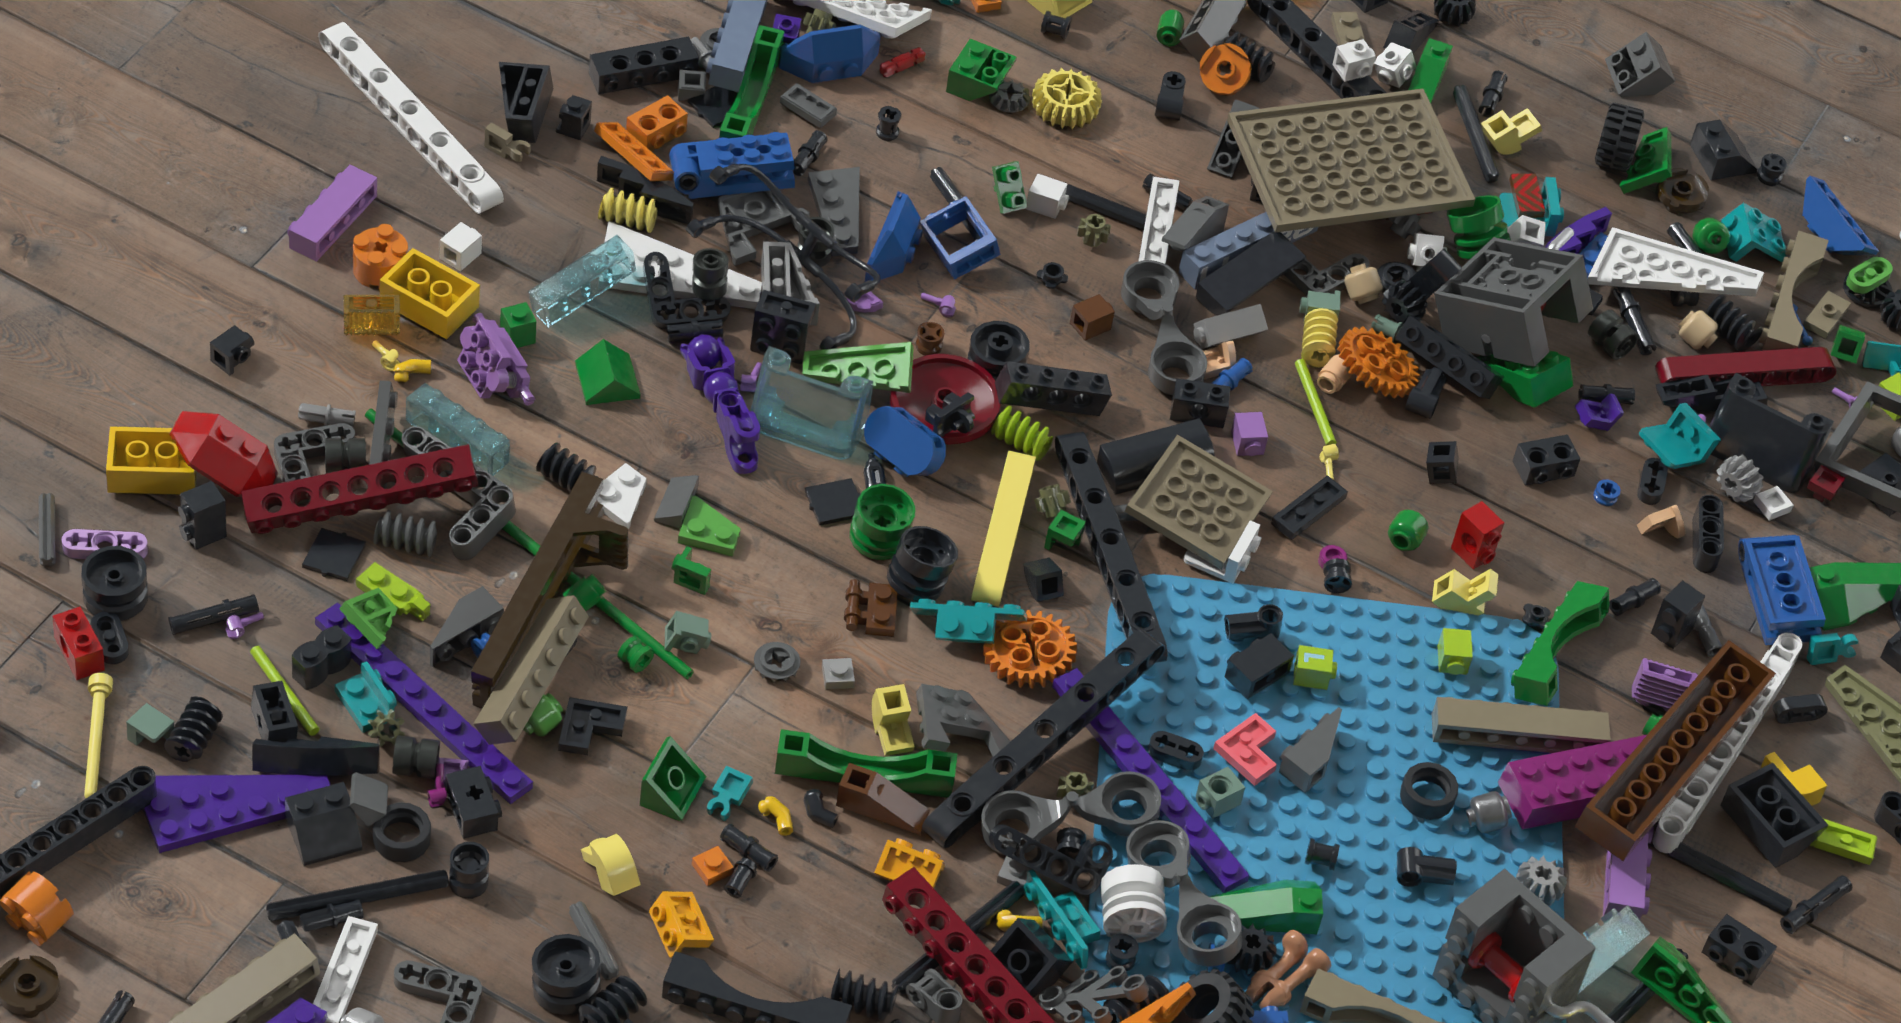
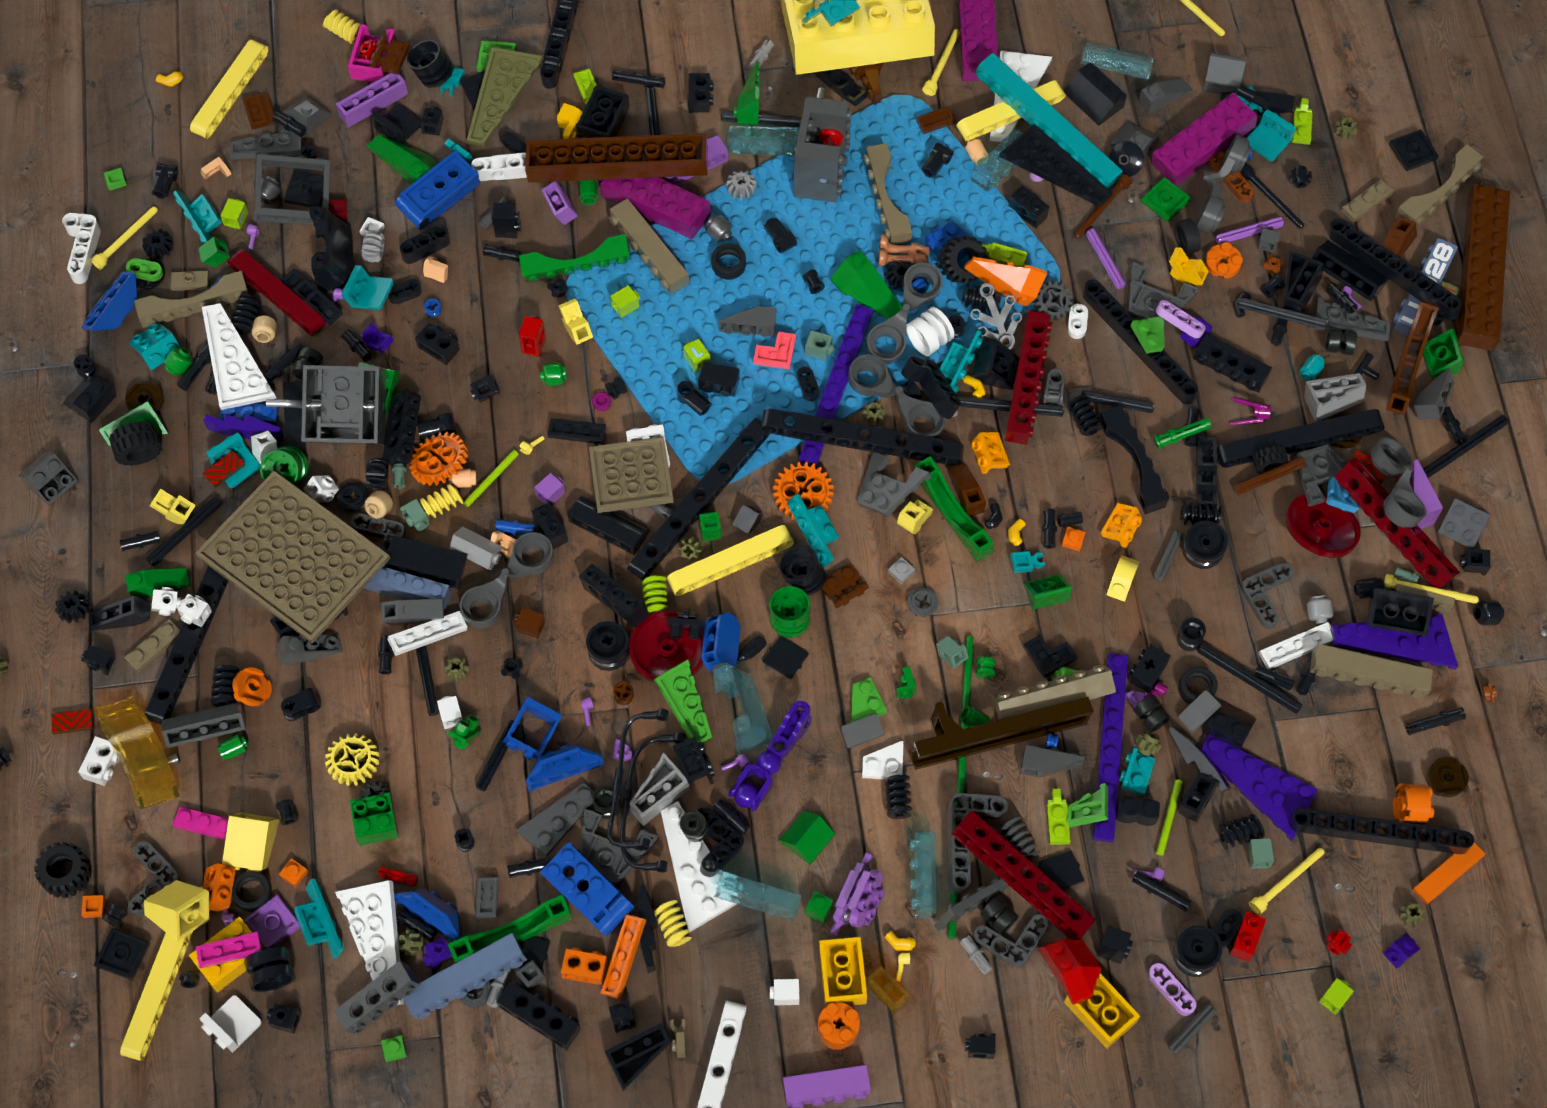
camera: 120 degrees left, 15 degrees up
(1435, 273) = (355, 459): black beam -> none

